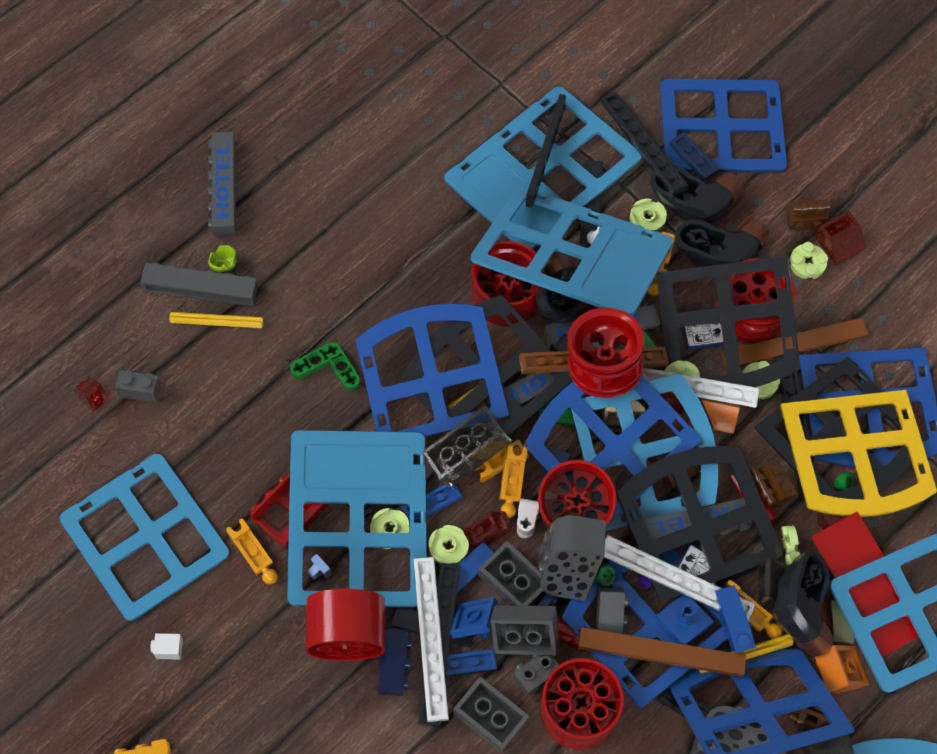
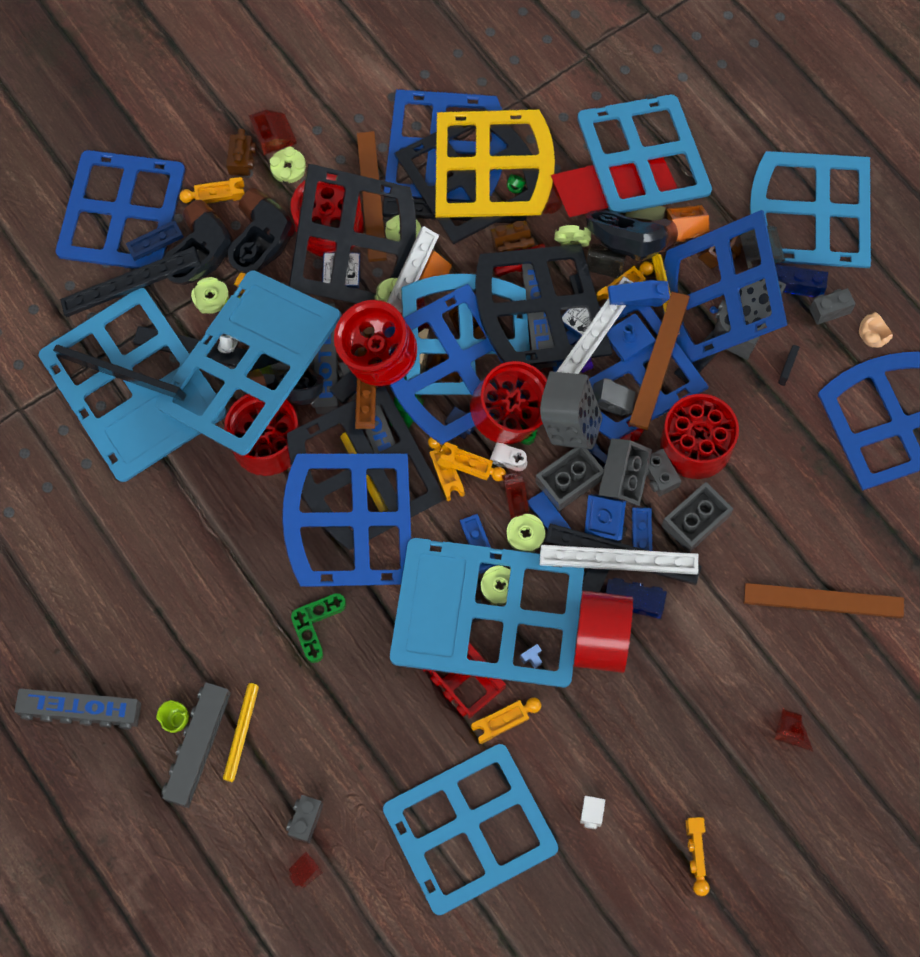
camera: 75 degrees left, 5 degrees up
(467, 446) = (435, 496): clear smoke brick -> none
(760, 199) = (215, 191): none -> light orange plate

